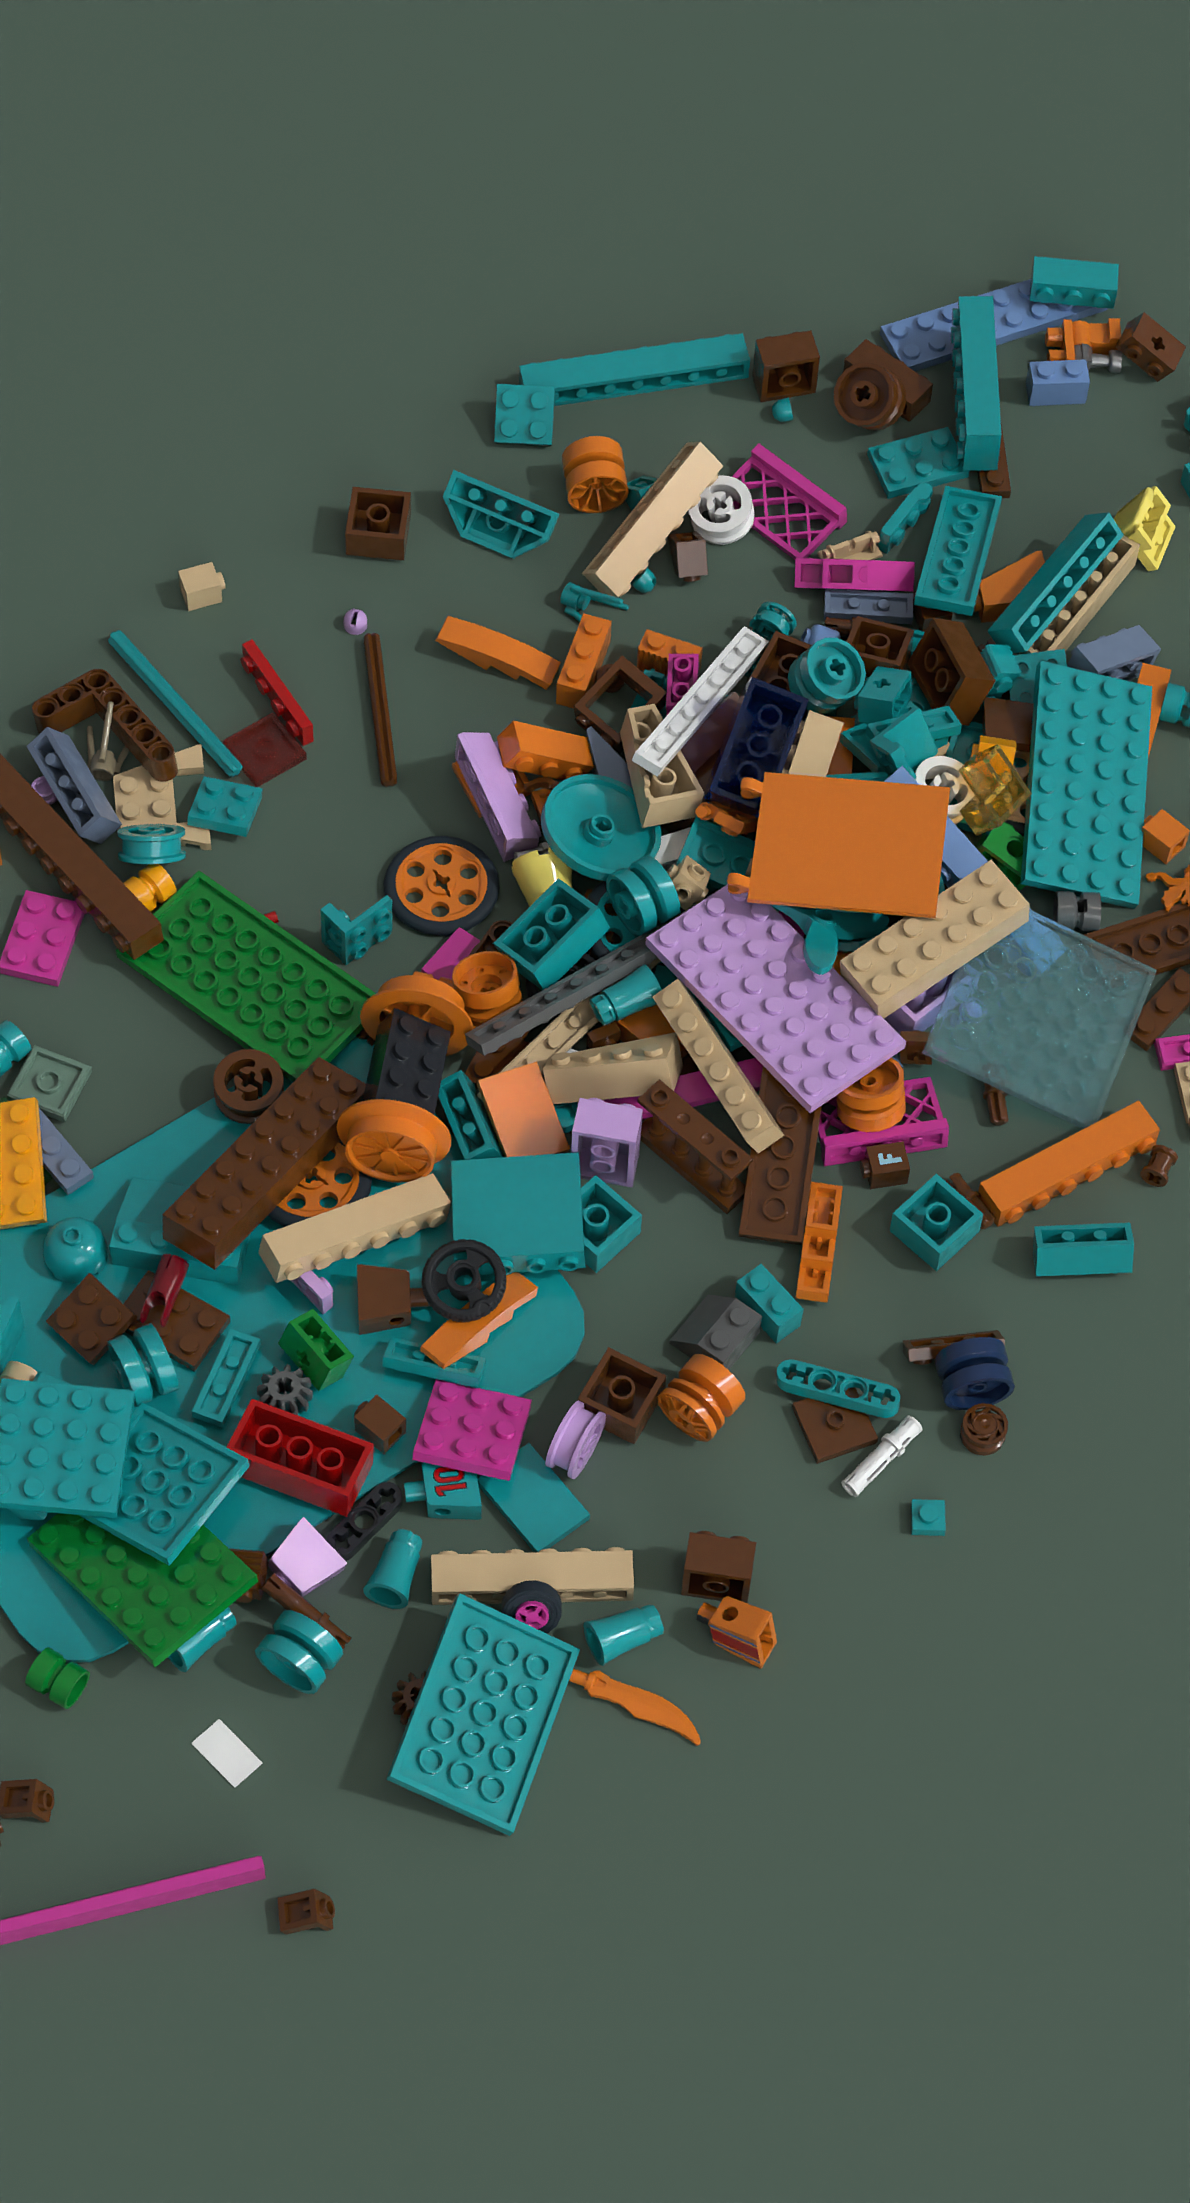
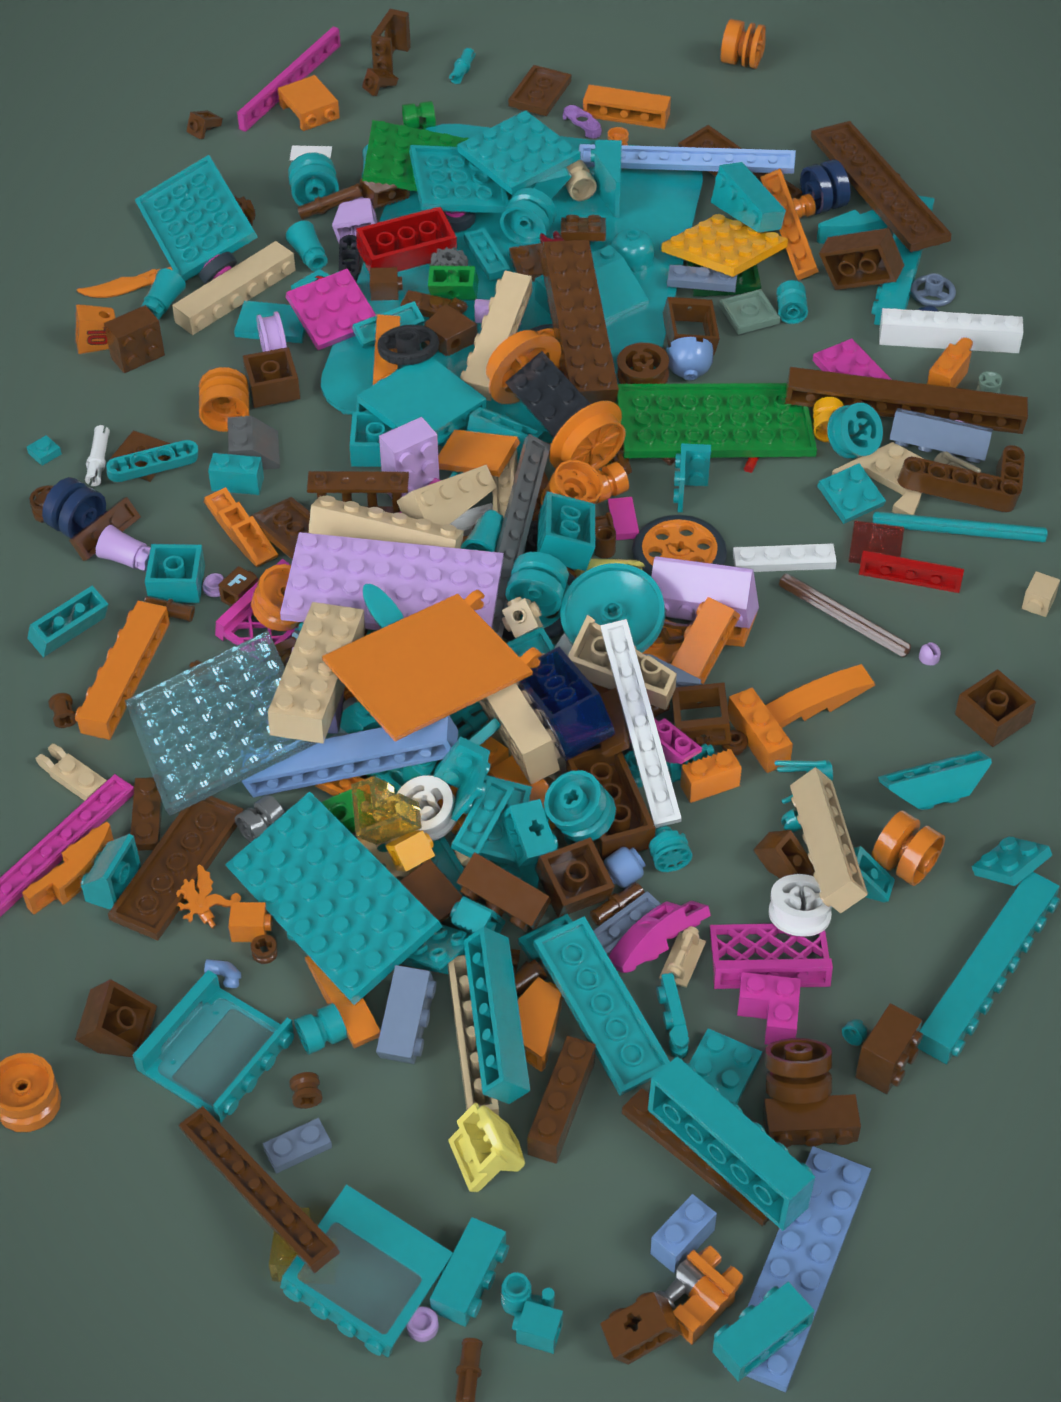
camera: 140 degrees right, 10 degrees down
(136, 1134) = (701, 311): none -> reddish brown window
(151, 1828) = (310, 102): none -> orange panel
(185, 1065) = (690, 358): none -> medium blue cylinder
(360, 802) = (785, 557): none -> white plate
(365, 1369) = (431, 304): none -> reddish brown hinge
(826, 461) = (771, 999): none -> dark pink brick
(900, 1192) = (210, 585): none -> lavender plate
(958, 1300) = (122, 548): none -> lavender plant
(979, 624) = (527, 975): none -> reddish brown cone
(1046, 523) = (561, 1099): none -> reddish brown brick
(1170, 804) = (266, 957): none -> reddish brown bush

